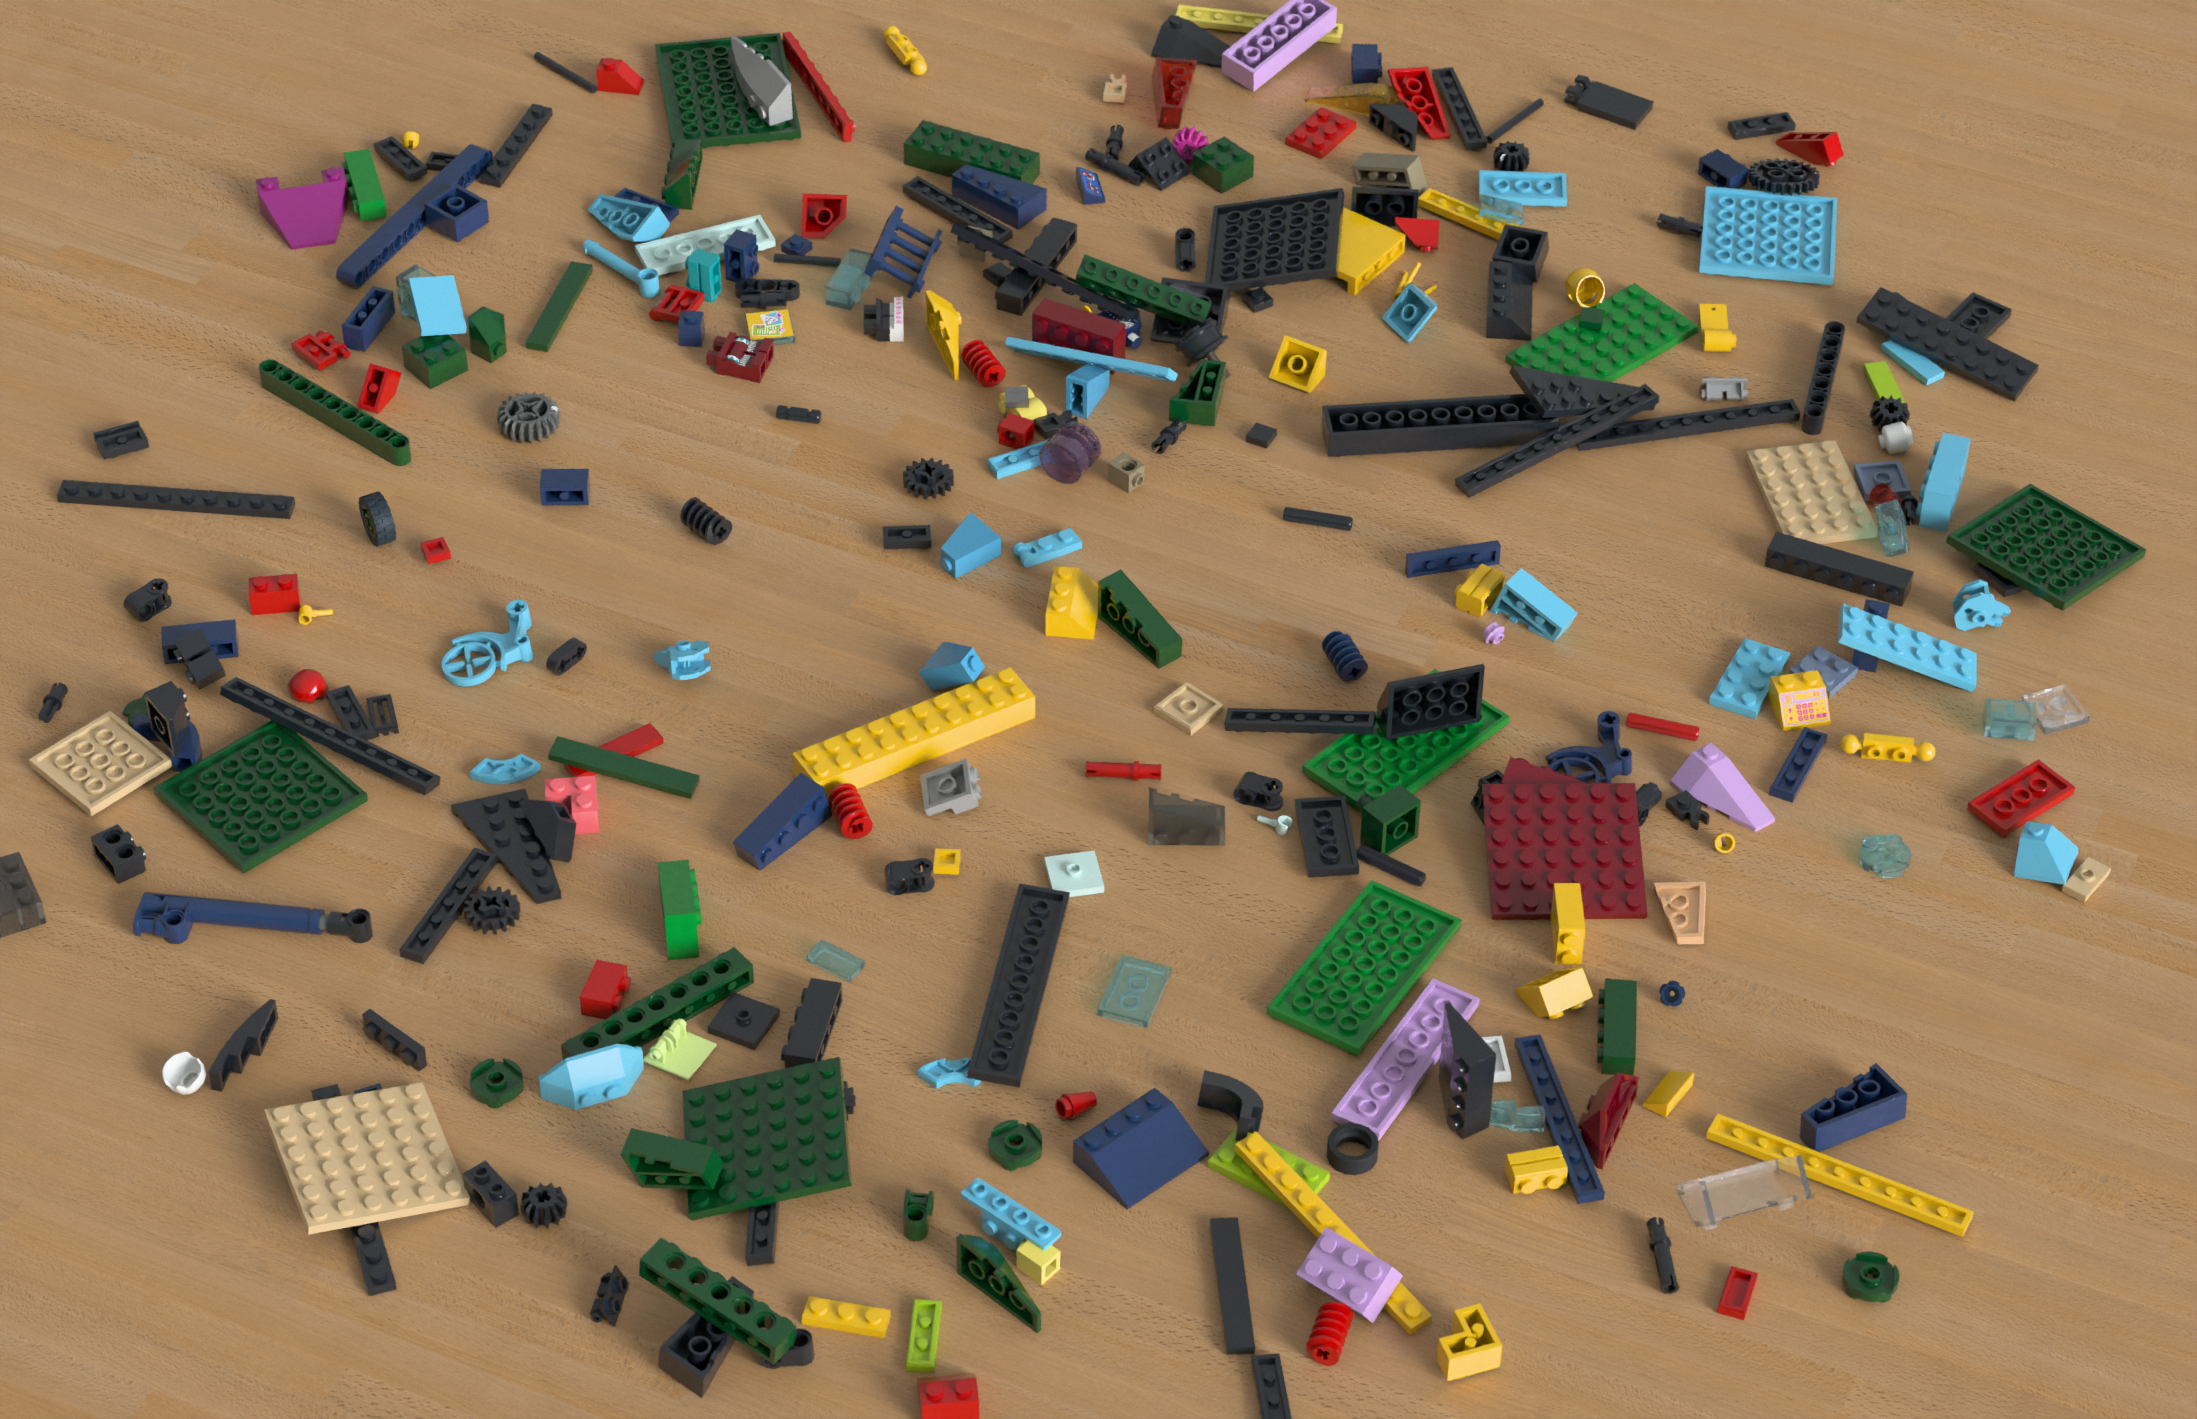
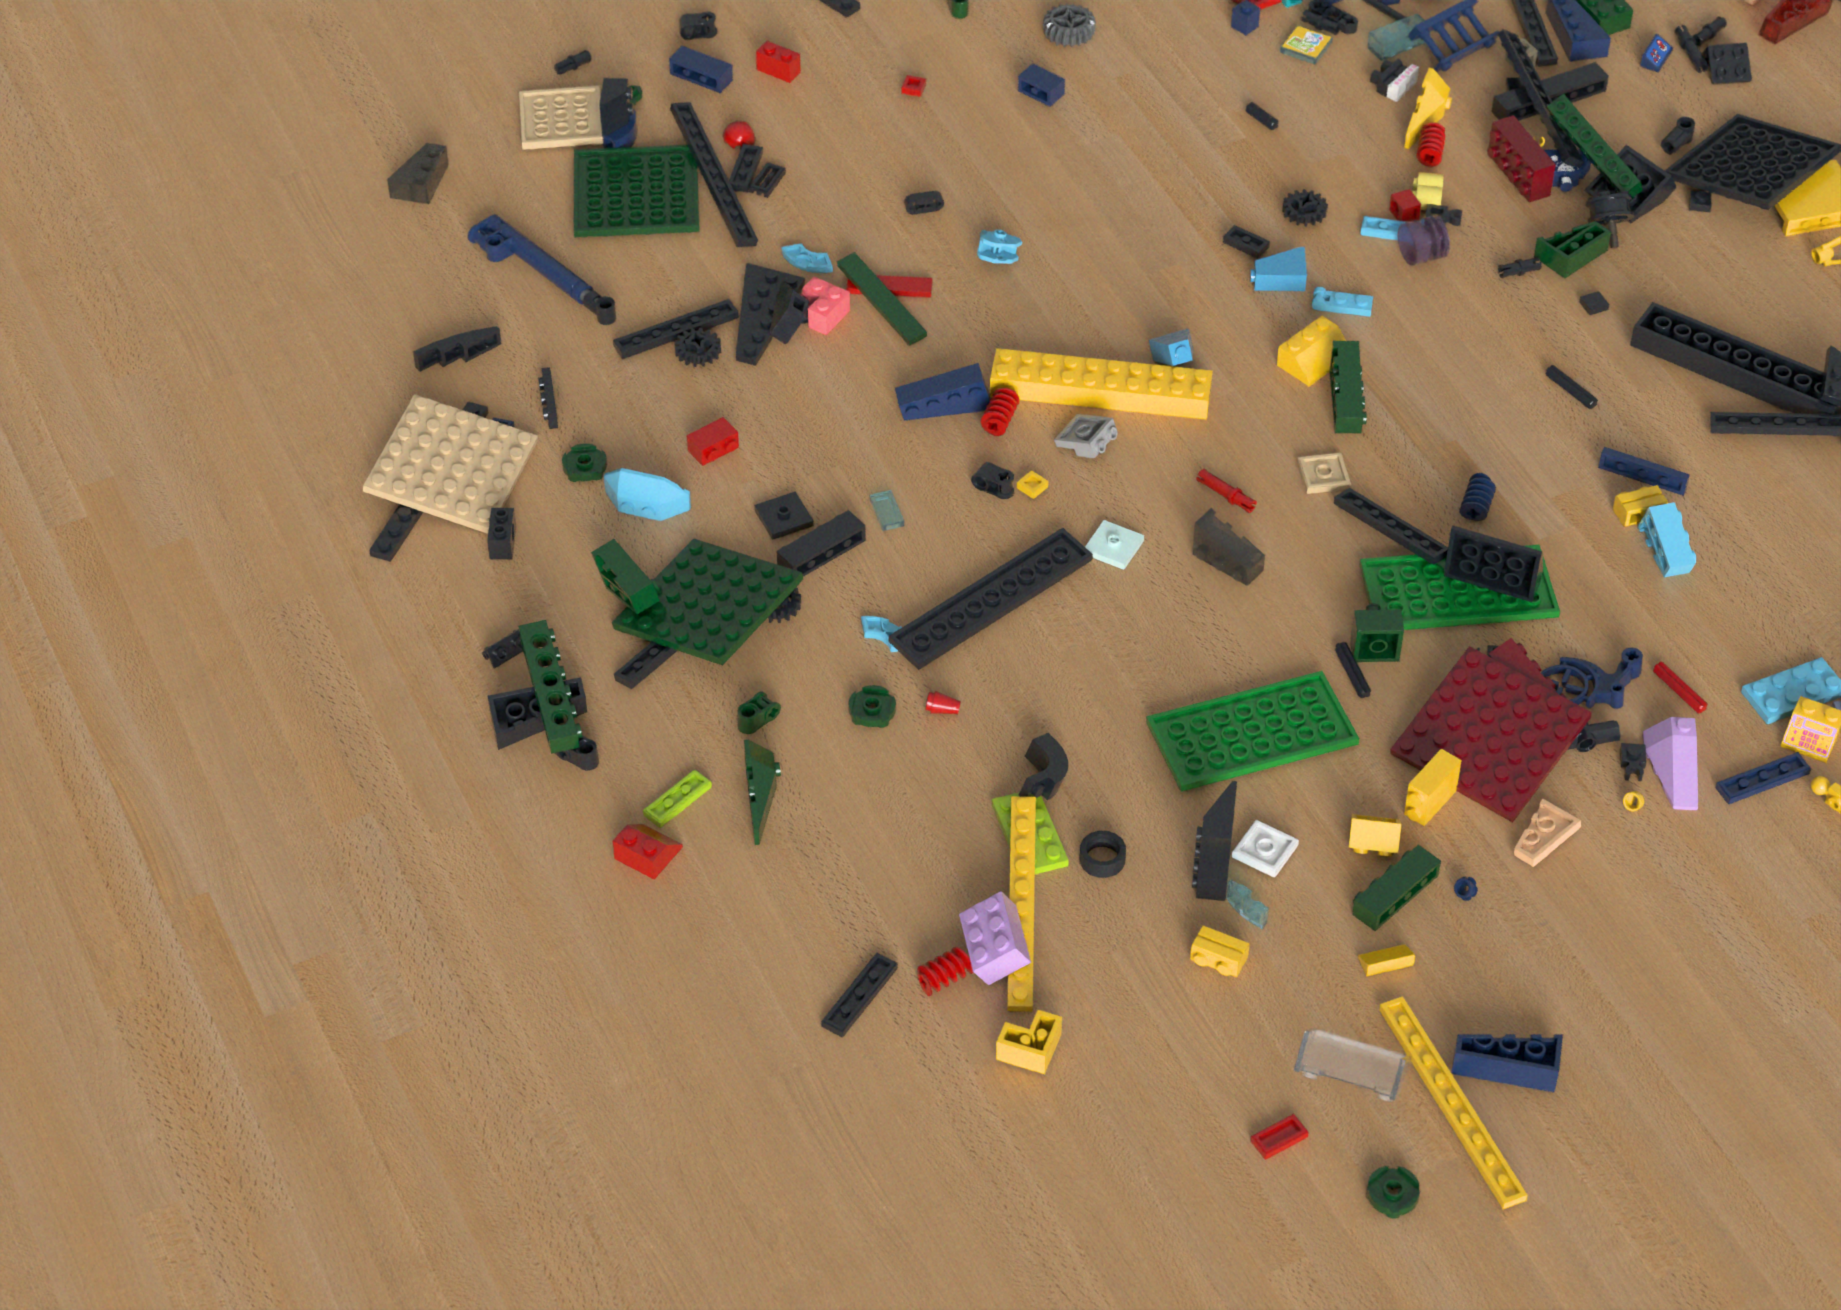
camera: 40 degrees right, 5 degrees up
(118, 853) = (511, 181): black brick -> none
(184, 1073) = (401, 345): white hair -> none
(199, 659) = (681, 74): black piece -> none
(306, 614) = (789, 85): yellow hand -> none
(377, 518) = (890, 43): black wheel -> none
(511, 646) = (894, 176): medium azure piece -> none
(543, 1205) = (527, 561): black gear -> none
(679, 999) = (739, 476): dark green brick -> none
(679, 1051) = (720, 510): yellowish green hinge -> none
(680, 908) = (814, 413): green wedge -> none
(705, 521) = (1113, 157): black piece -> none
(741, 356) = (1262, 53): dark red hips -> none
(846, 1317) = (641, 754): yellow plate -> none
(1007, 1218) = (807, 751): medium azure bracket -> none
(1016, 397) = (1424, 179): flat silver tile -> none
(1036, 1262) = (802, 794): light yellow brick -> none
(1085, 358) = (1518, 186): medium azure tile -> none
(1085, 389) = (1489, 200): dark azure slope -> none
(1126, 472) = (1456, 277): dark tan brick -> none
(1134, 991) = (1069, 650): clear light blue tile -> none
(1138, 1148) = (951, 761): dark blue slope -> none
(1189, 141) = (1764, 58): dark pink gear -> none
(1222, 165) = (1777, 86): dark green brick -> none
(1232, 1286) = (917, 896): black tile -> none
(1258, 790) = (1308, 561): black piece -> none
(1281, 825) = (1305, 591): light aqua hand -> none
(1299, 364) = (1676, 265): yellow slope -> none
(1326, 836) = (1324, 621): black plate -> none
(1402, 1060) = (1177, 821): lavender plate -> none
(1410, 312) = (1811, 268): medium azure slope -> none
(1493, 633) = (1617, 544): lavender plate -> none
(1559, 1118) = (1278, 926): dark blue plate -> none
(1607, 1115) = (1317, 946): dark red wedge -> none
(1660, 1246) = (1255, 1064): black pin -> none
(1875, 847) = (1754, 875): clear light blue plate -> none

